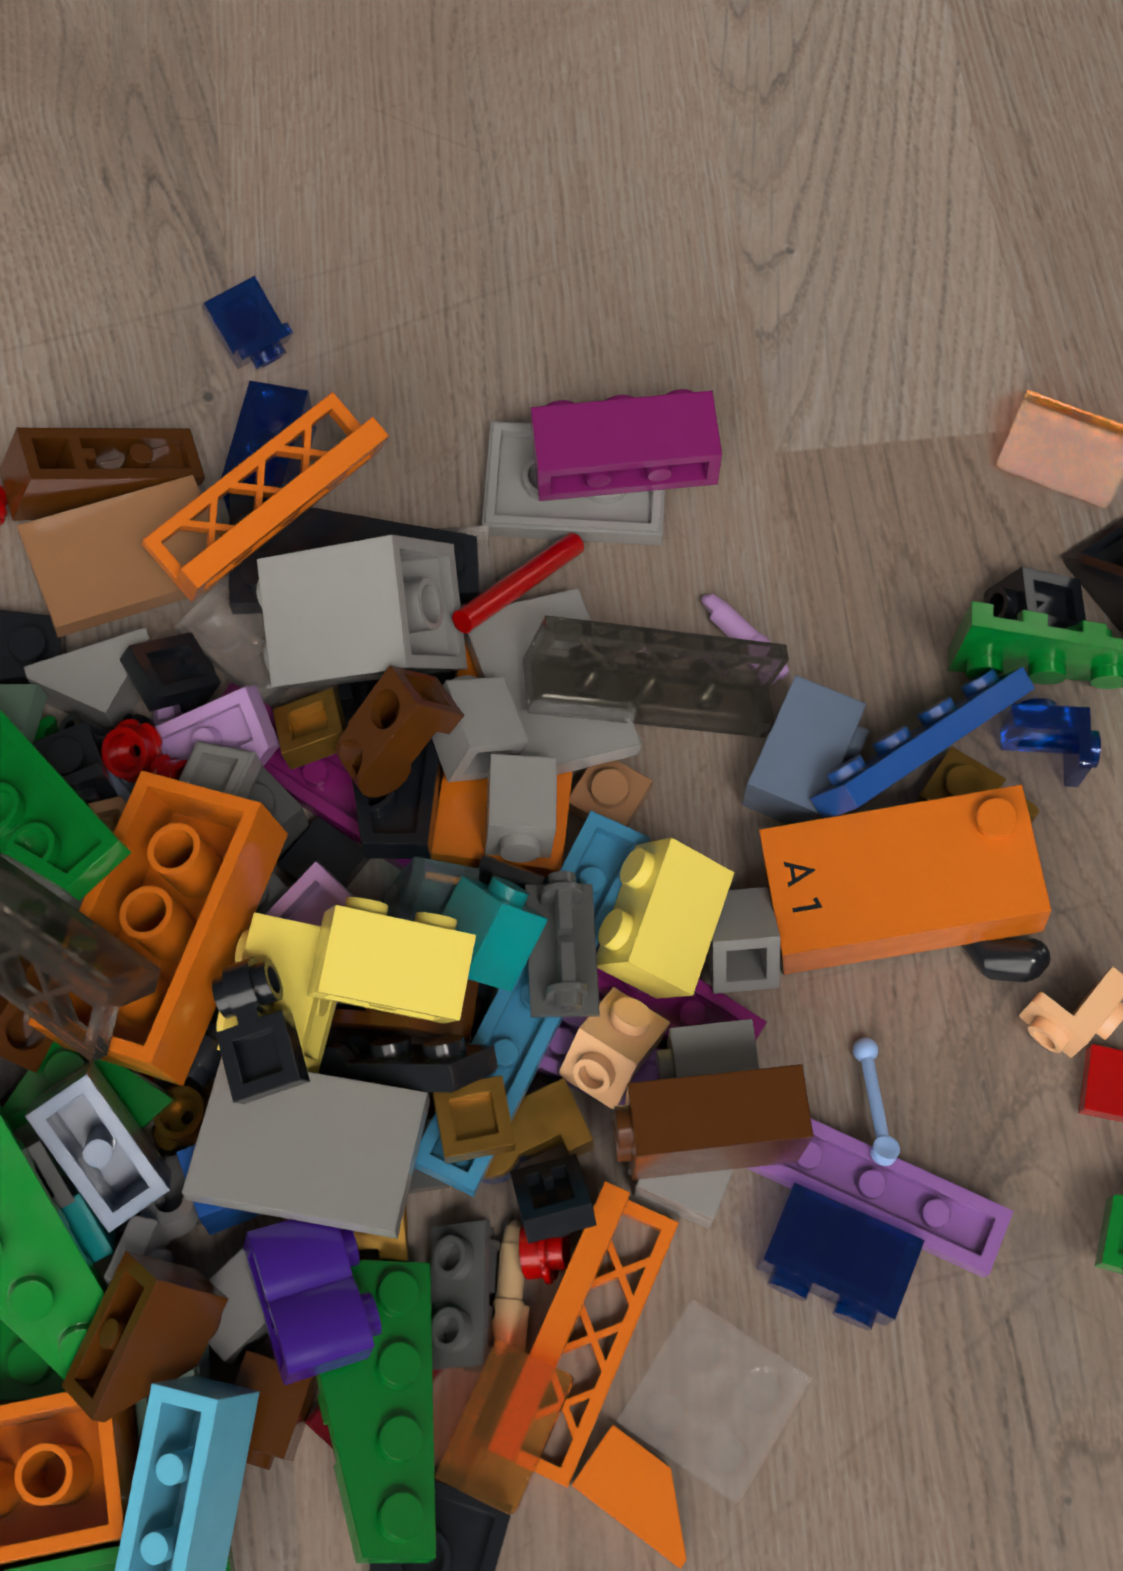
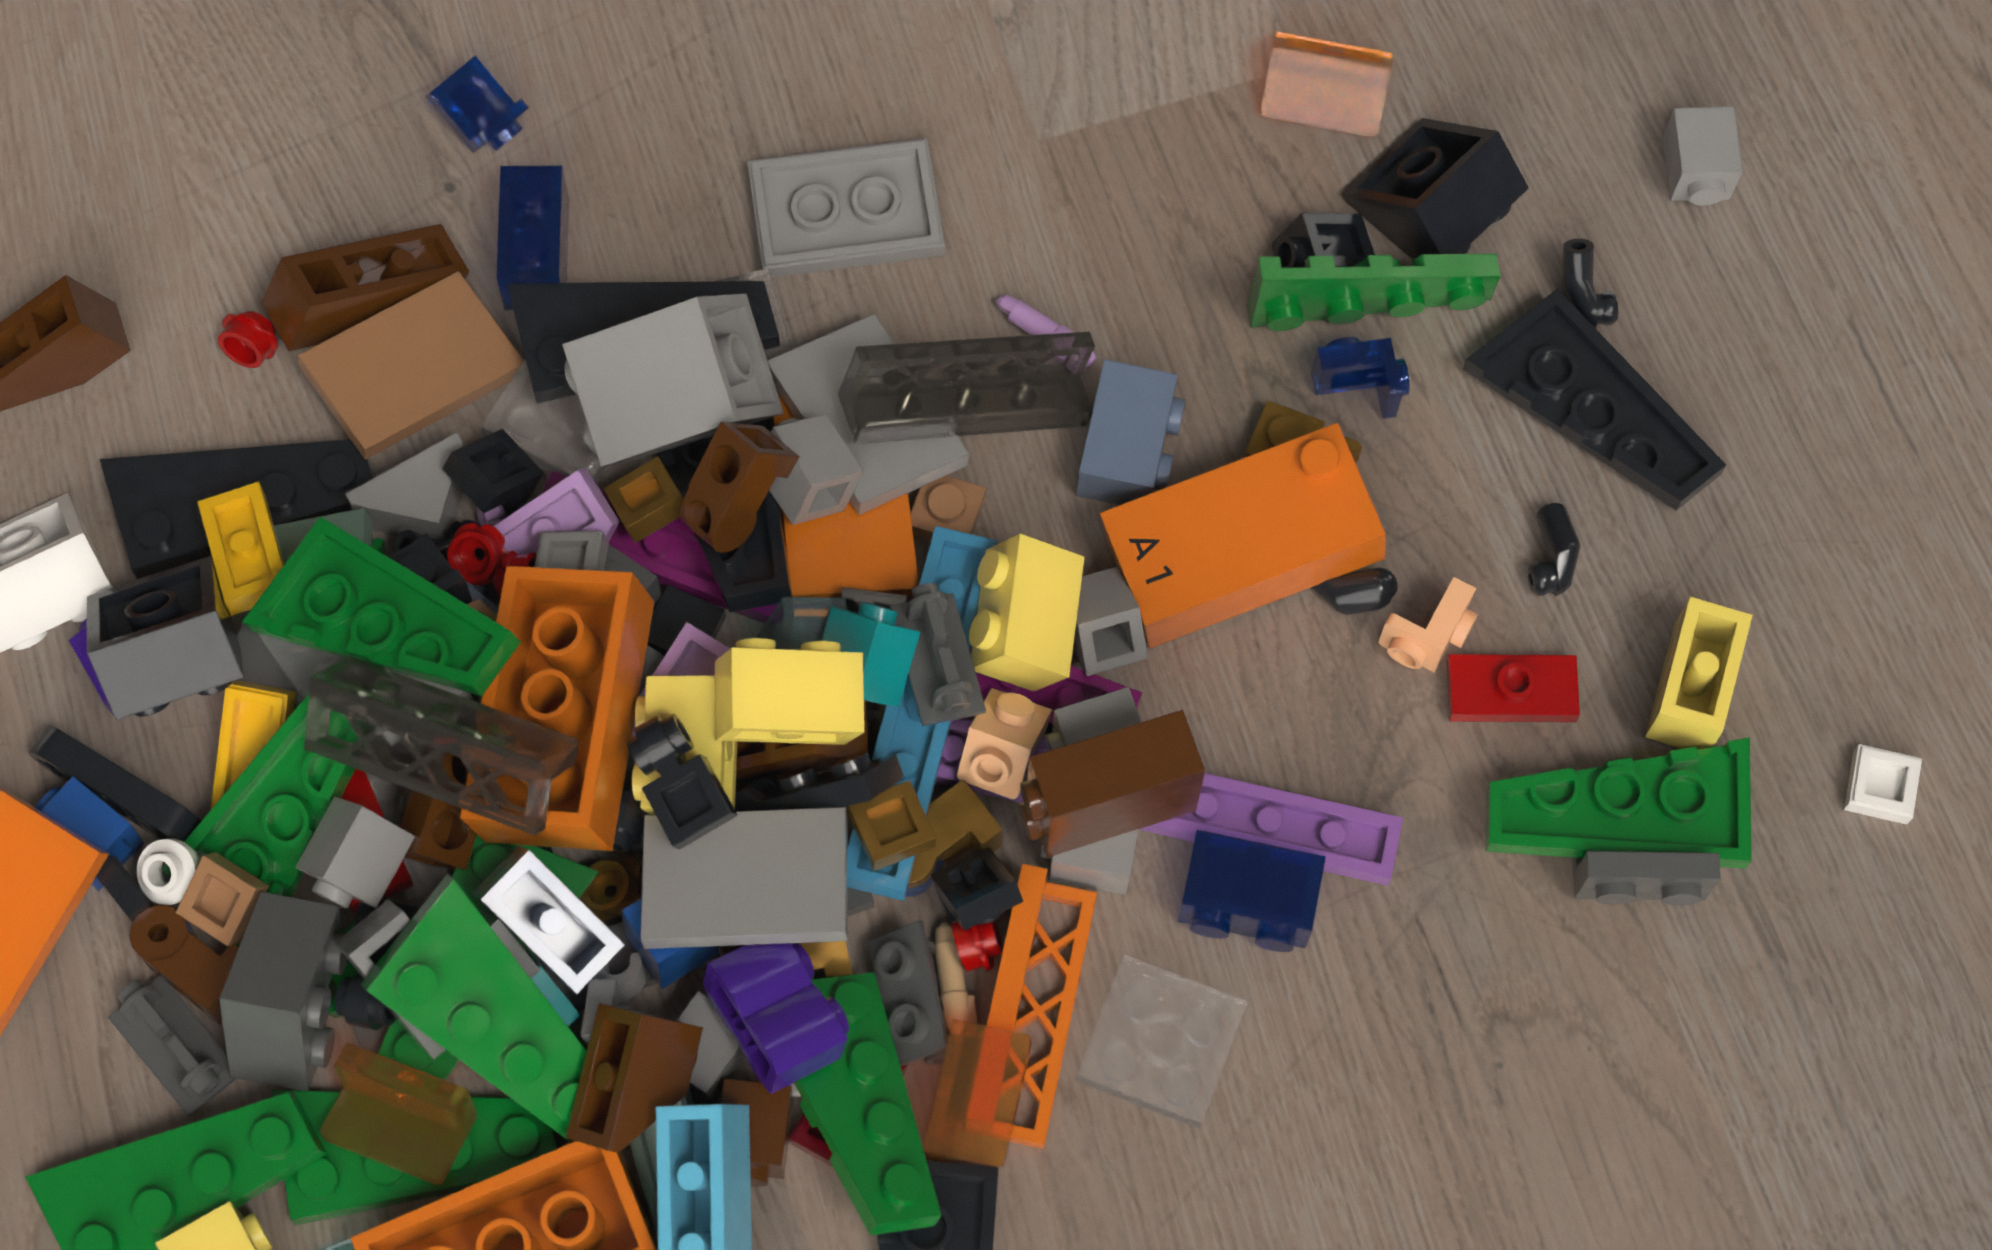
camera: 15 degrees left, 0 degrees up
(283, 503) = (572, 283): orange fence -> none
(517, 583) = (814, 319): red bar -> none
(521, 807) = (868, 534): light grey brick -> none
(625, 445) = (890, 162): magenta brick -> none
(635, 1492) = (1106, 1137): orange tile -> none
(885, 1148) = (1274, 784): light blue hinge -> none
(904, 751) = (1223, 412): blue plate -> none

